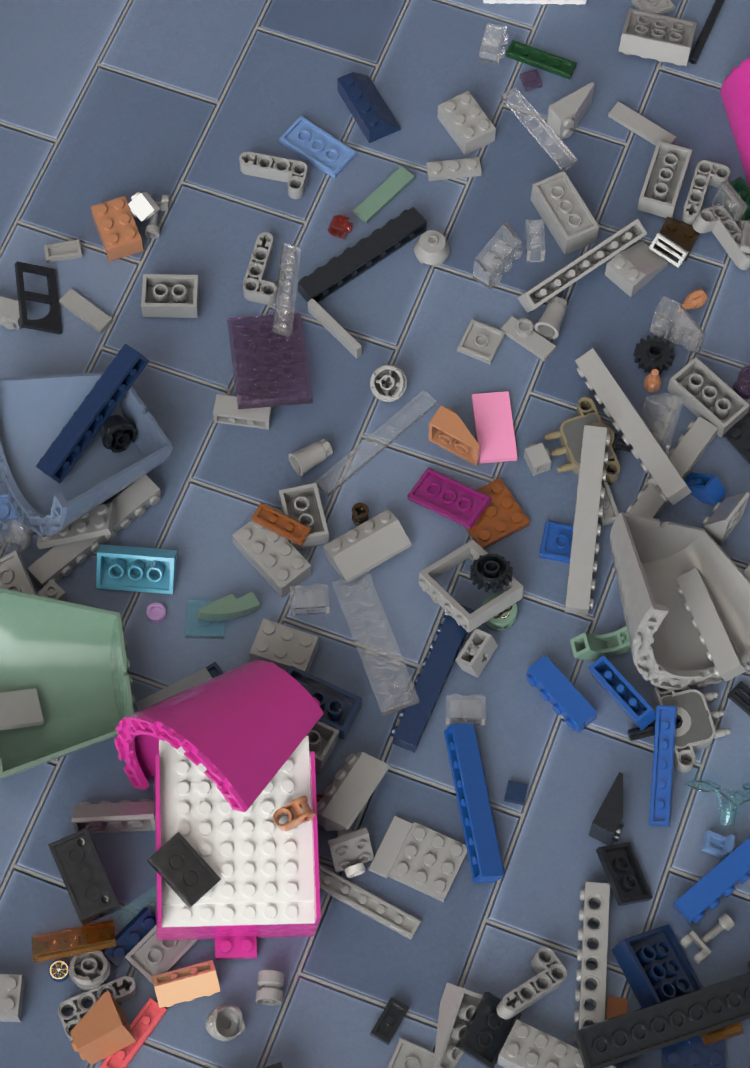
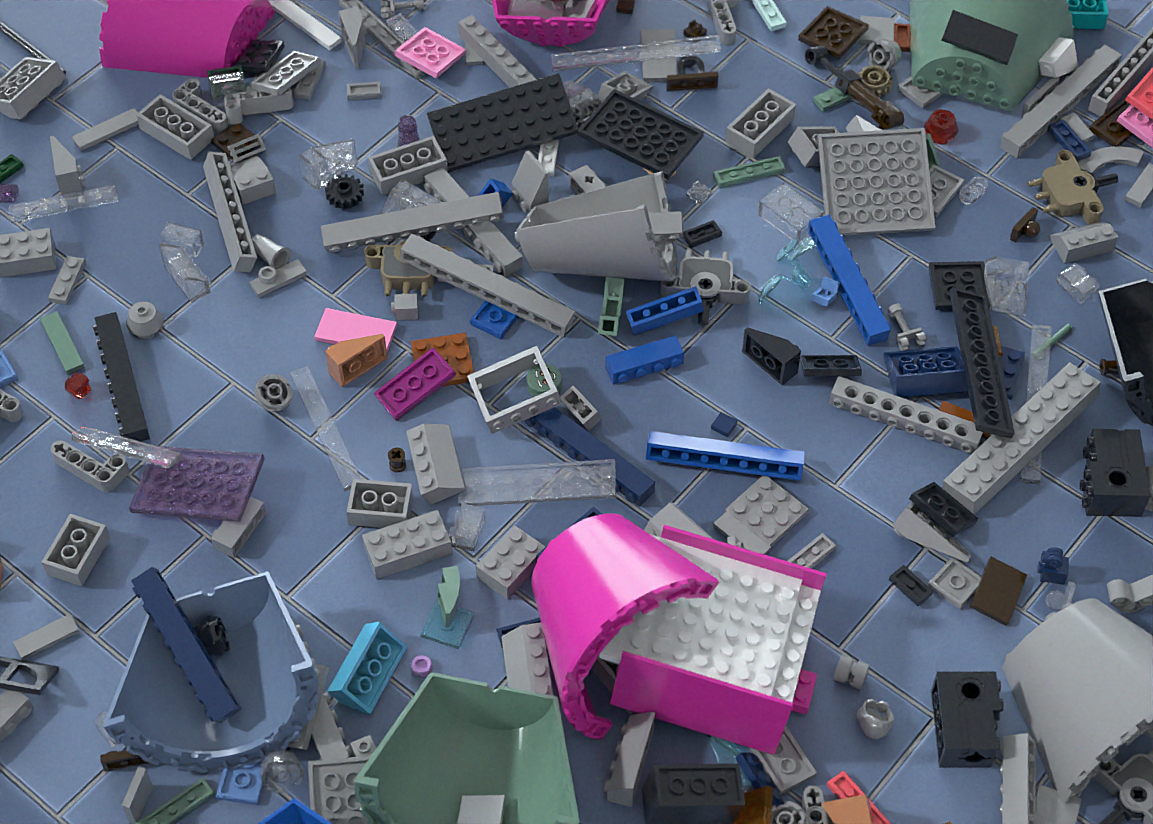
camera: 70 degrees left, 10 degrees down
(183, 869) = (746, 668): black tile -> none
(186, 984) = (826, 742): light nougat brick -> none
(281, 524) = (385, 518): dark orange tile -> none
(295, 814) = (721, 556): nougat piece -> none
(310, 456) = (317, 484): light grey plant -> none
(335, 328) = (187, 422): light grey tile -> none
(465, 709) = (631, 436): clear brick -> none
(481, 341) = (262, 314): light grey tile -> none
(491, 572) = (514, 362): black gear -> none
(529, 988) = (909, 448): light grey beam -> none
(564, 213) = (174, 203): light grey piece -> none
(652, 381) = (371, 199): nougat piece -> none
(663, 765) = (743, 306): blue tile -> none
(695, 299) = (304, 143): nougat piece -> none

